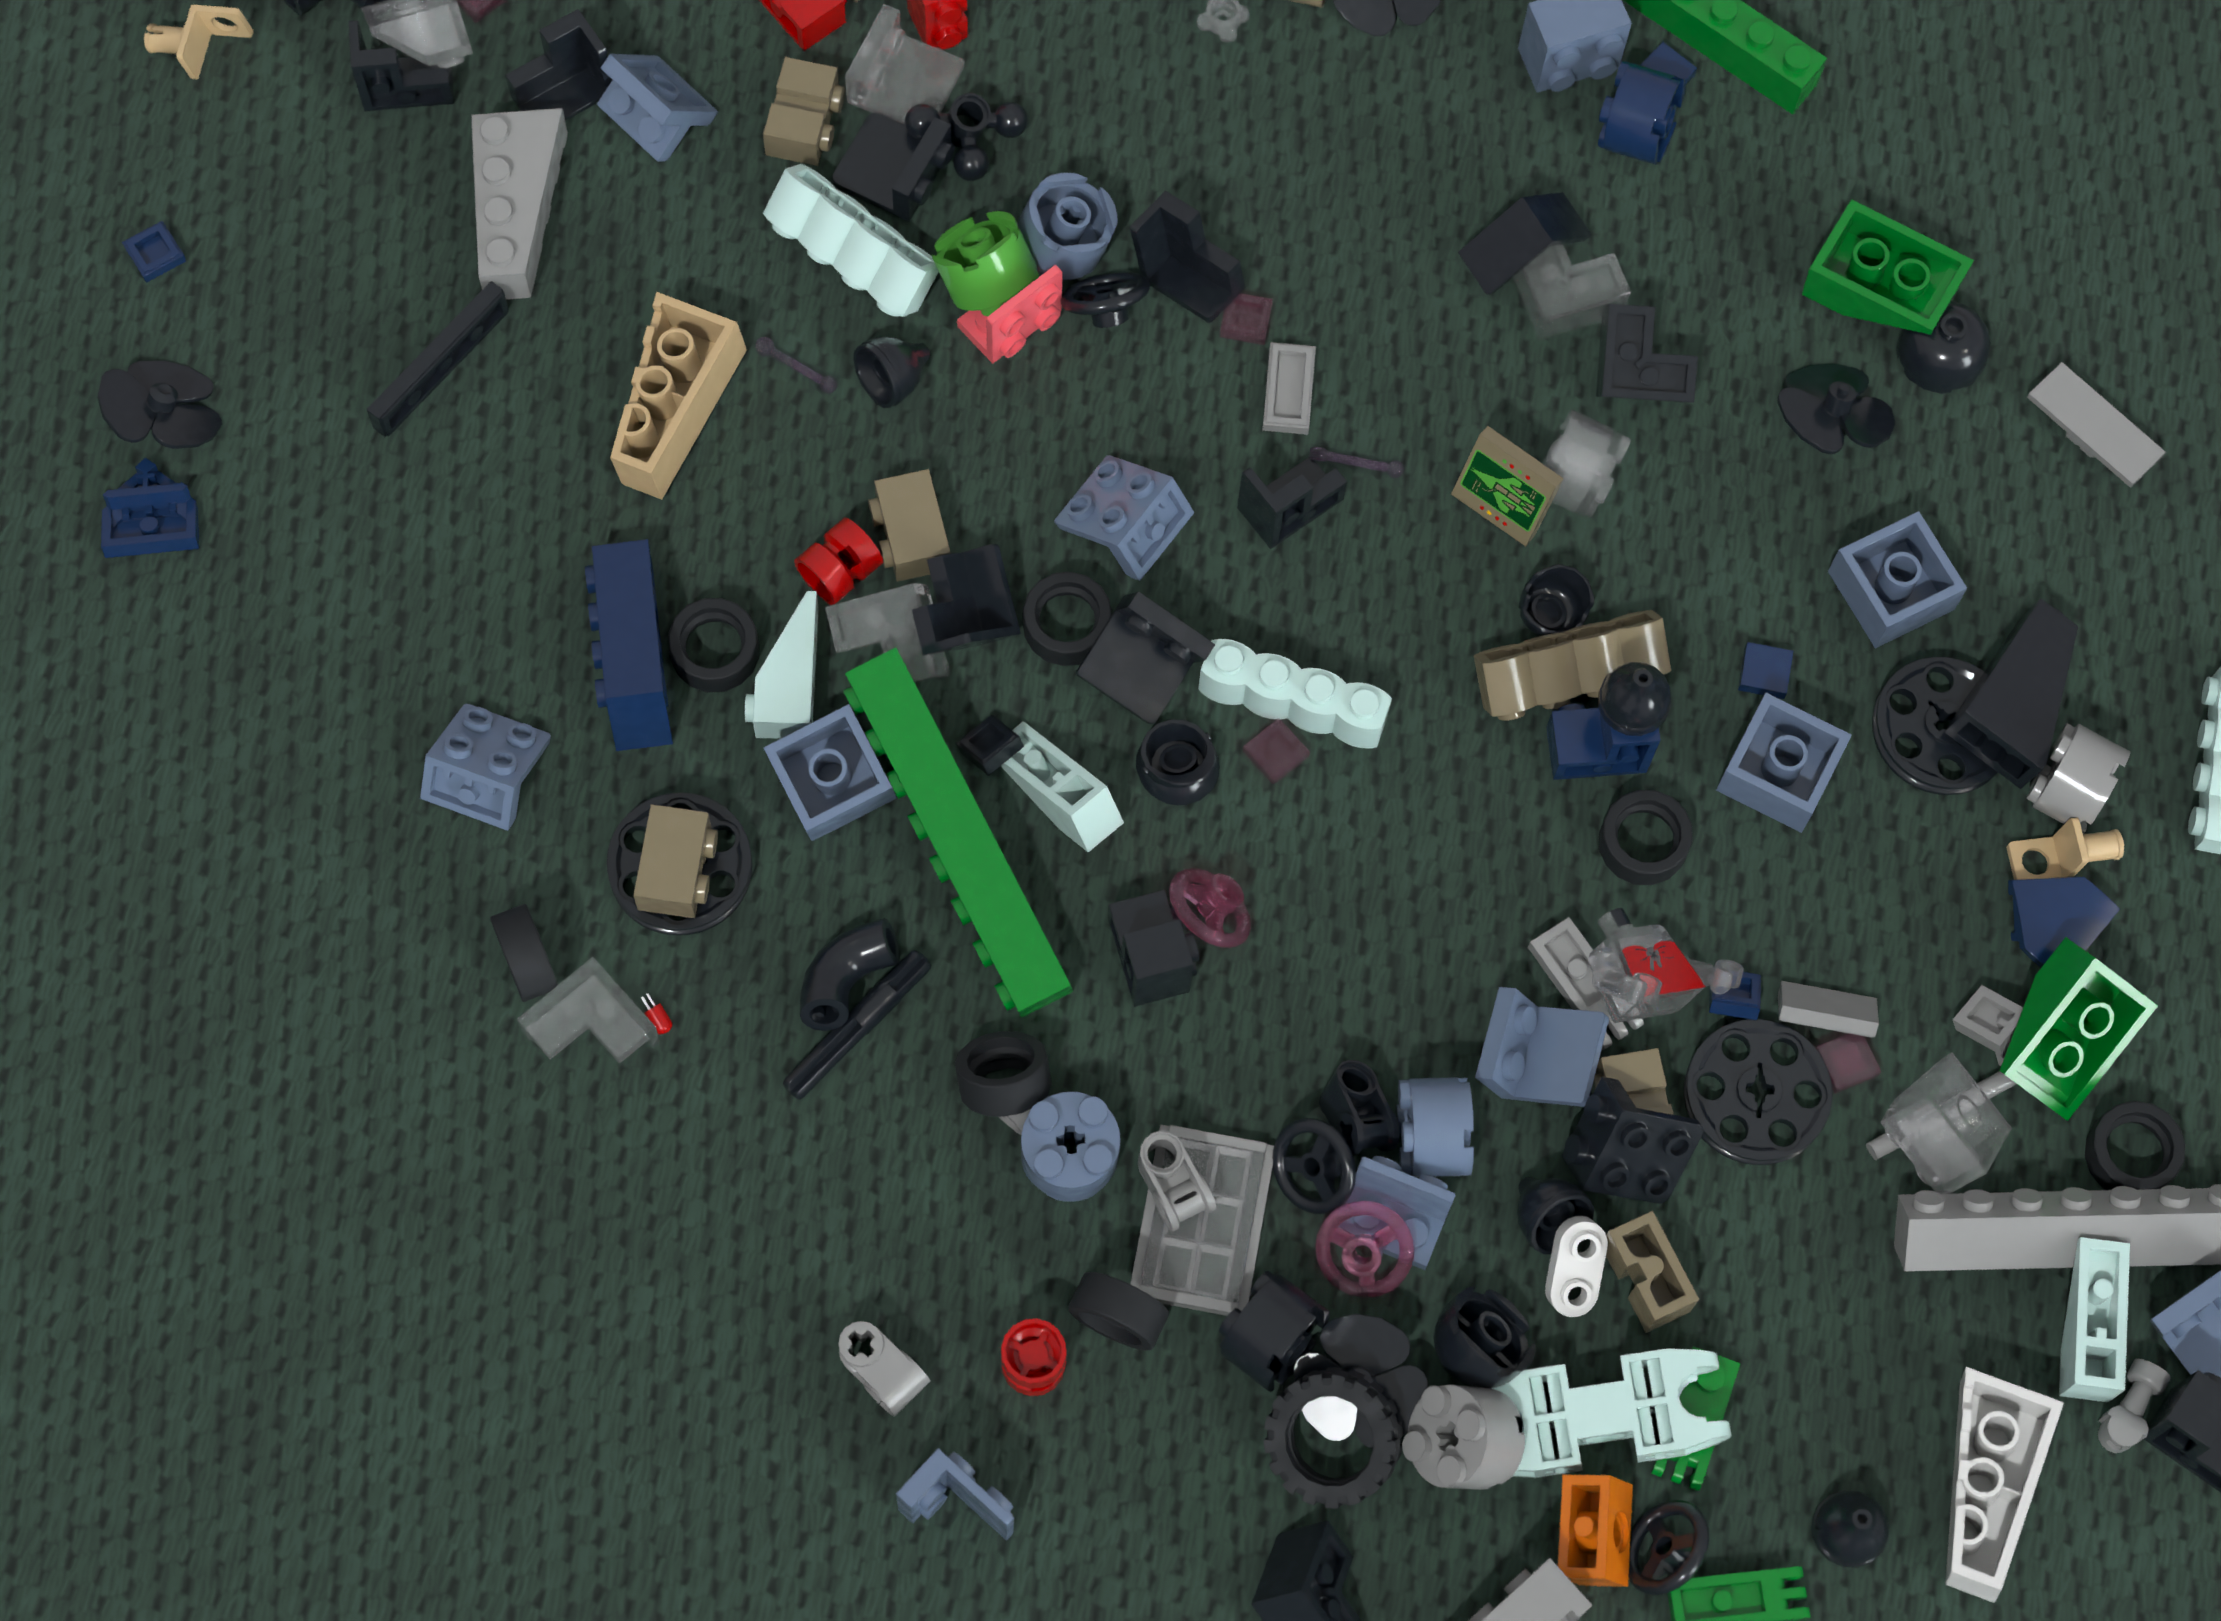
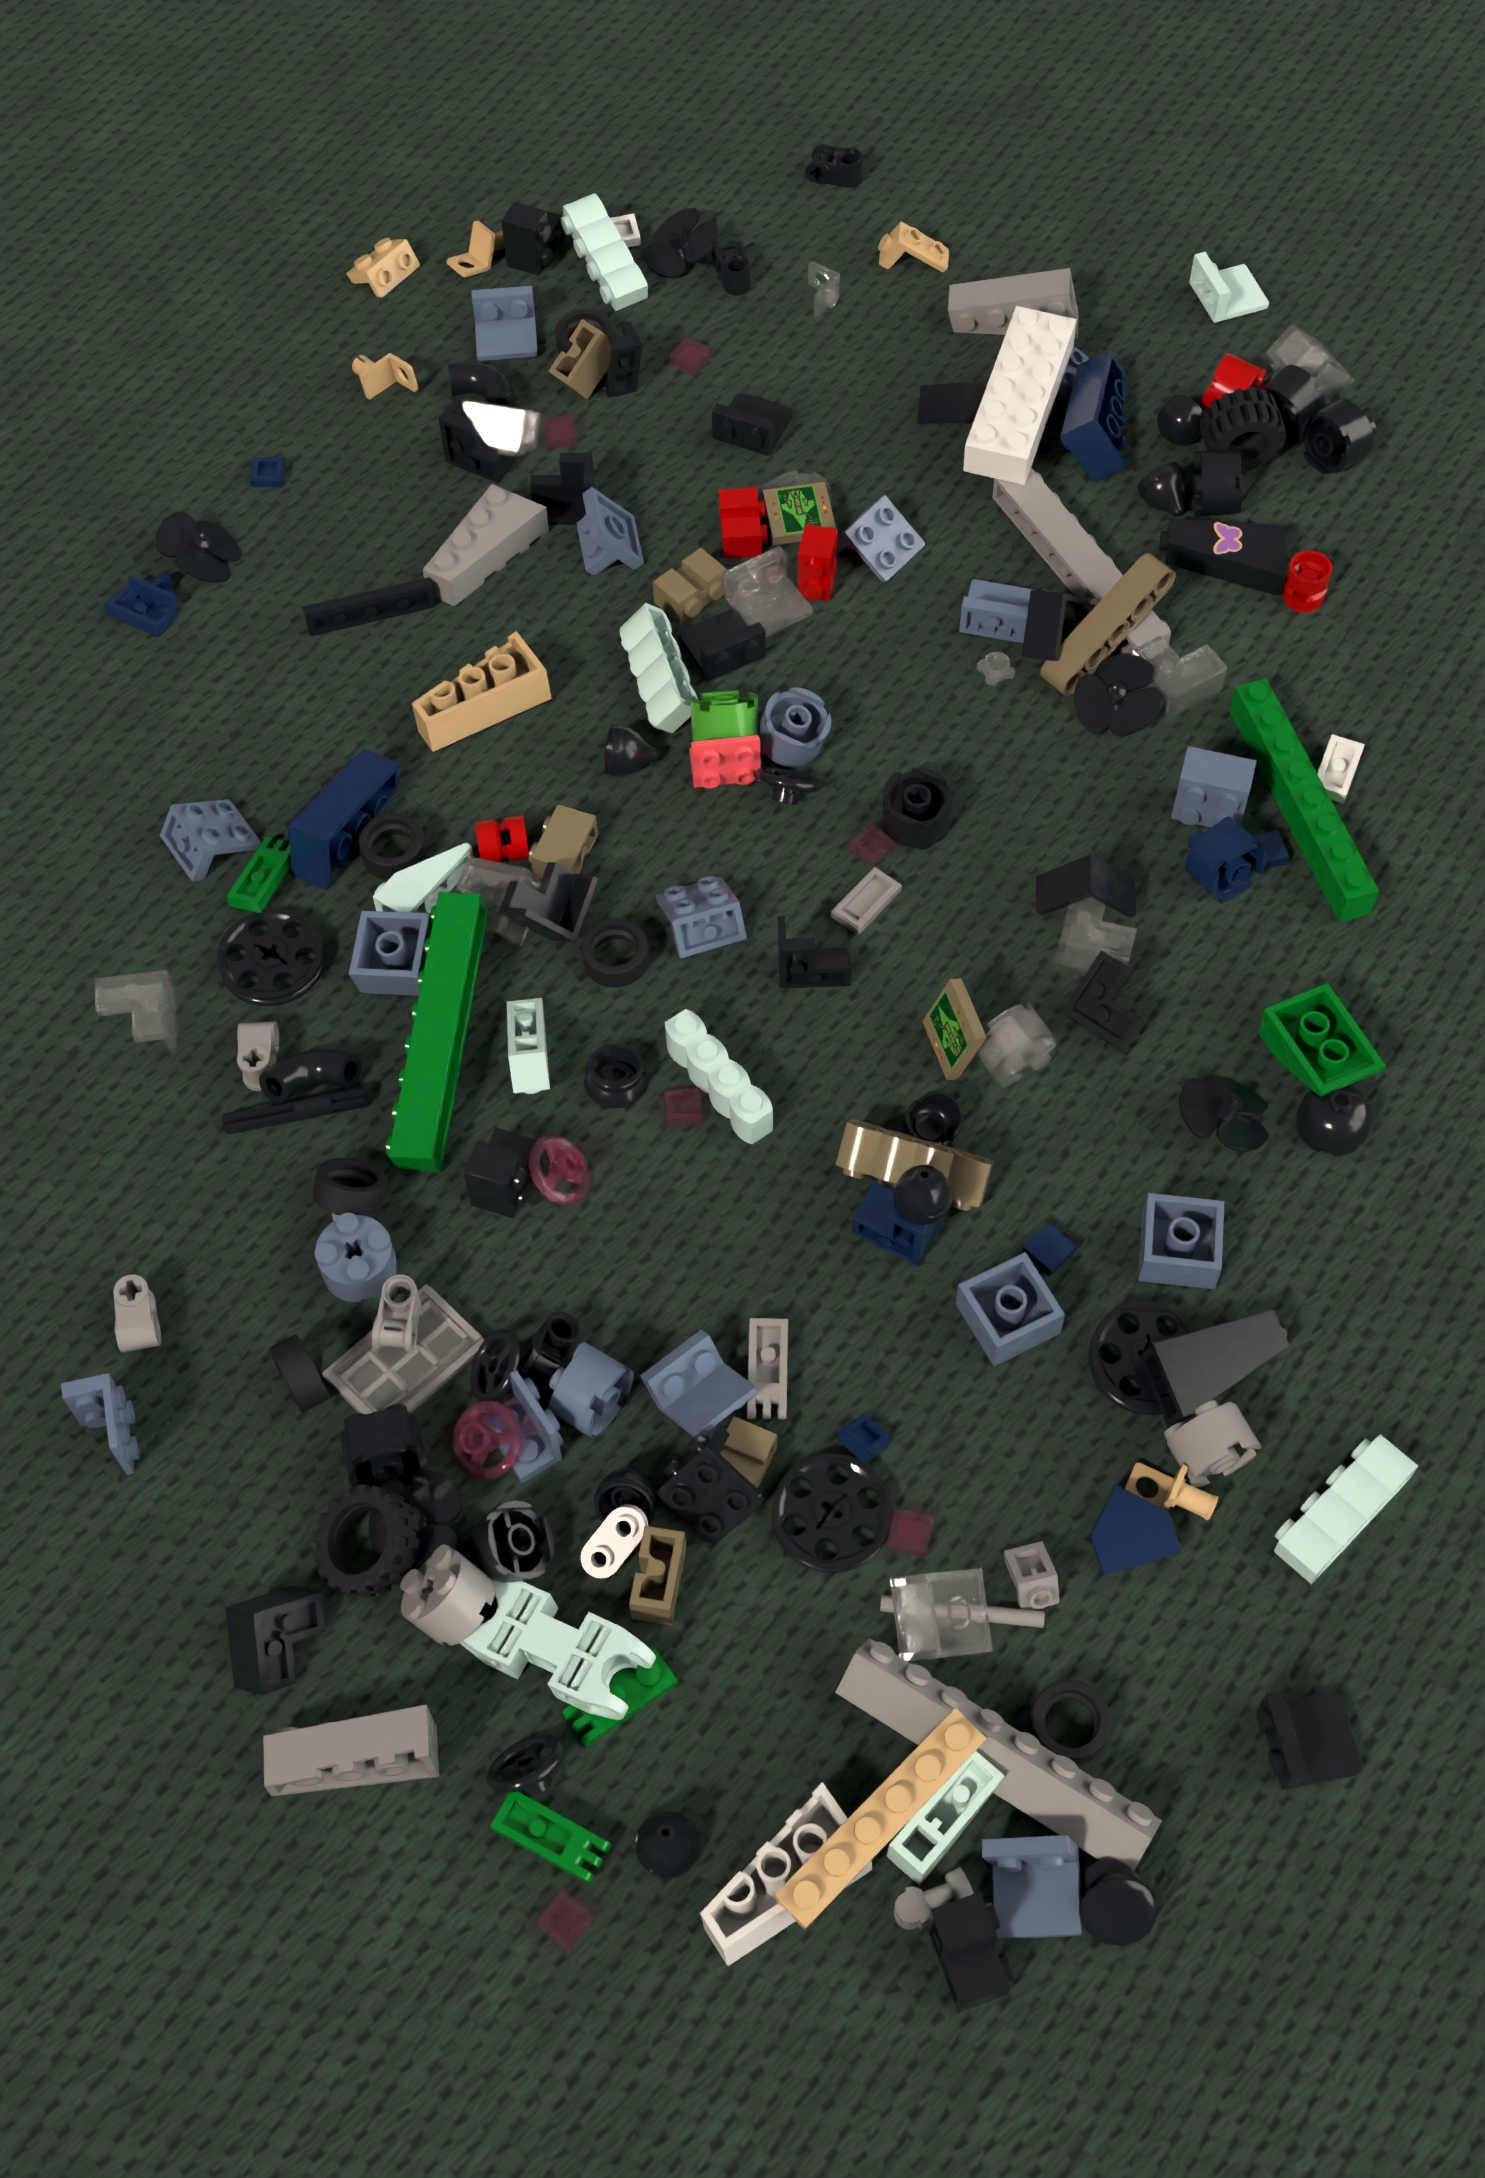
camera: 40 degrees right, 10 degrees down
(524, 952) = (134, 944): black tyre -> none
(591, 773) = (261, 876): none -> green hinge
(658, 1016) = (187, 1035): red piece -> none
(673, 861) = (259, 945): dark tan brick -> none
(758, 982) = (256, 1050): none -> light grey piece
(766, 347) = (566, 704): hinge -> none
(970, 160) = (771, 665): black piece -> none
(990, 745) = (508, 997): black tile -> none
(1033, 1357) = (227, 1368): red wheel -> none
(1142, 656) = (636, 998): black bracket -> none
(1181, 261) = (851, 782): black panel -> none
(1273, 243) = (916, 808): none -> black brick
(1394, 469) = (895, 984): clear purple hinge -> none
(1595, 1530) = (486, 1719): orange brick -> none
(1647, 973) = (811, 1383): clear torso -> none
(1658, 805) = (881, 1329): black tyre -> none
(1828, 1009) = (920, 1488): light grey tile -> none
(2053, 1364) = (879, 1818): none -> tan plate
(2072, 1028) = (1079, 1607): green slope -> none
(2096, 425) = (1406, 1227): light grey piece -> none

